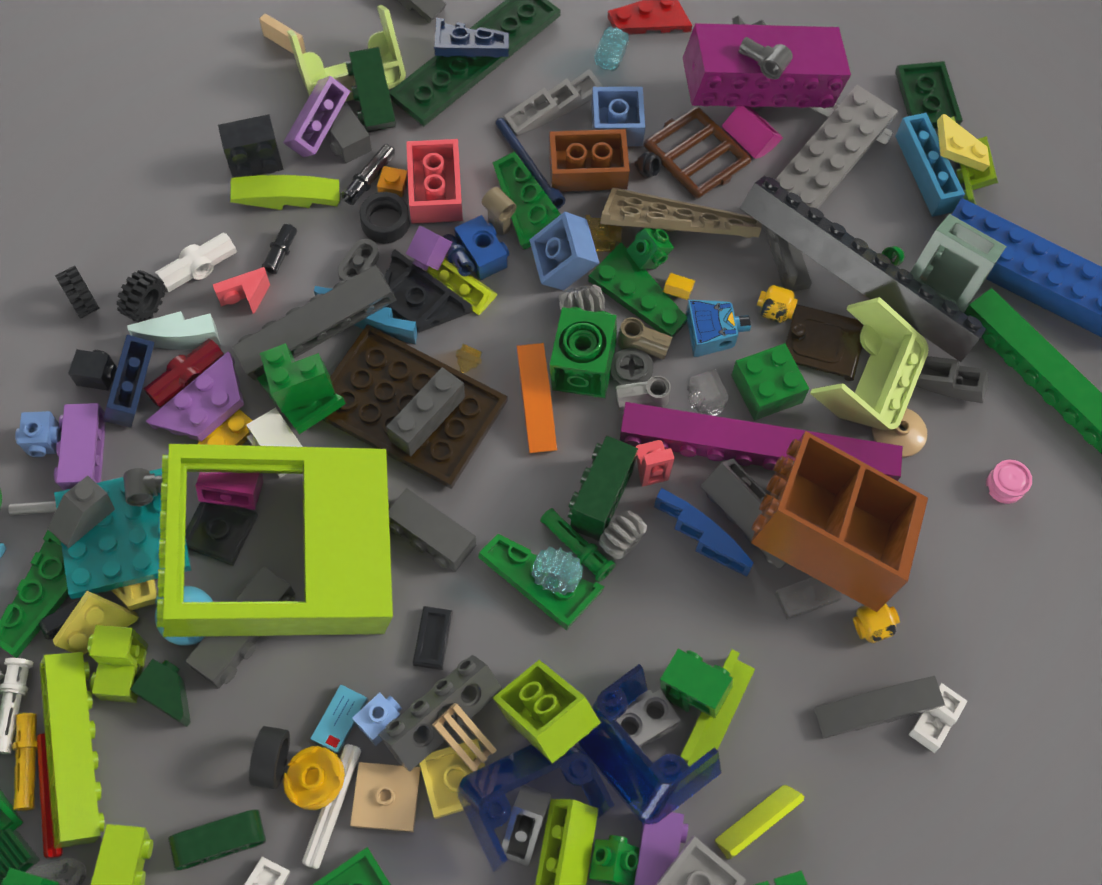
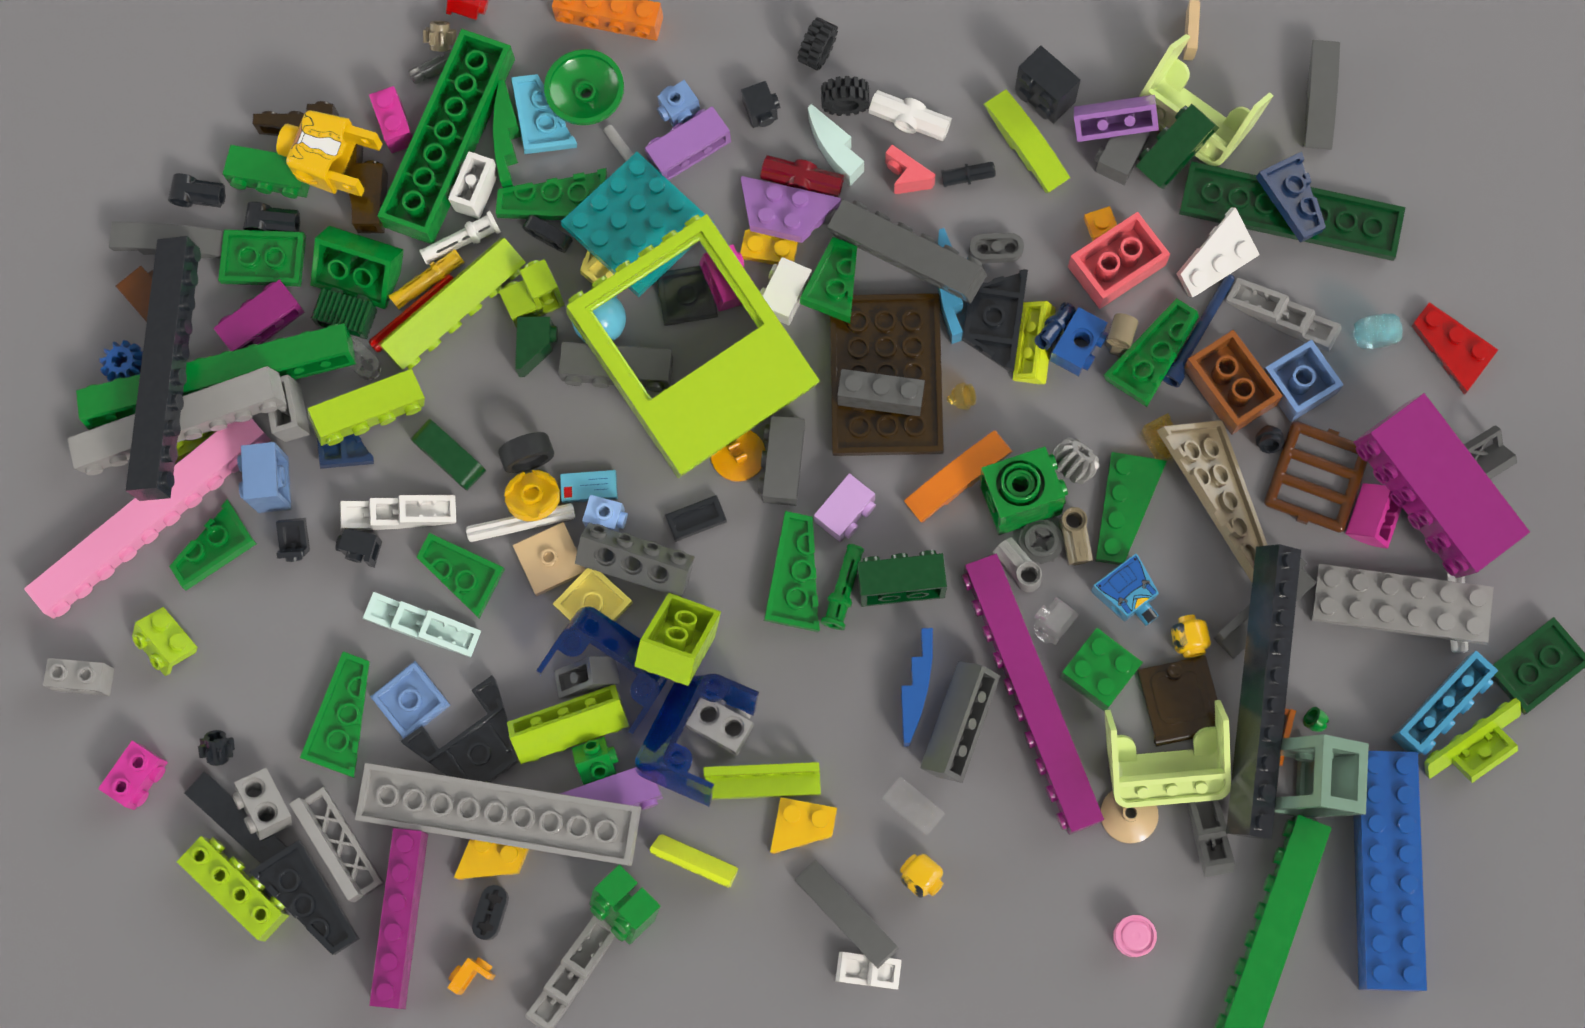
camera: 70 degrees right, 10 degrees up
(80, 511) = (627, 183): dark grey slope -> none
(88, 613) = (556, 250): light yellow wing -> none
(128, 381) = (764, 139): dark blue brick -> none
(141, 486) = (676, 213): dark grey pin -> none
(294, 381) = (839, 268): green brick -> none
(362, 181) = (1097, 199): black axle -> none
(381, 201) = (1057, 221): black tyre -> none
(407, 568) = (740, 458): none -> light orange piece
(428, 249) = (1041, 298): medium lavender brick -> none
(479, 116) = (1219, 256): none -> white wing
(482, 756) = (616, 611): tan tile -> none
(507, 503) = (845, 508): none -> lavender brick
(557, 570) = (801, 582): clear light blue gear -> none
(564, 251) = (1114, 416): medium blue brick -> none
(623, 534) = (871, 619): light grey gear -> none
(650, 248) = (1171, 490): green brick -> none
(654, 462) = (955, 608): coral slope -> none
(679, 286) = (1152, 538): yellow tile -> none
(695, 683) = (769, 746): green brick -> none
(771, 59) = (1427, 487): dark grey pin -> none
(773, 703) = (801, 824): none -> yellow wing
(840, 521) = (983, 792): dark orange container -> none
(960, 145) = (1481, 723): light yellow wing -> none

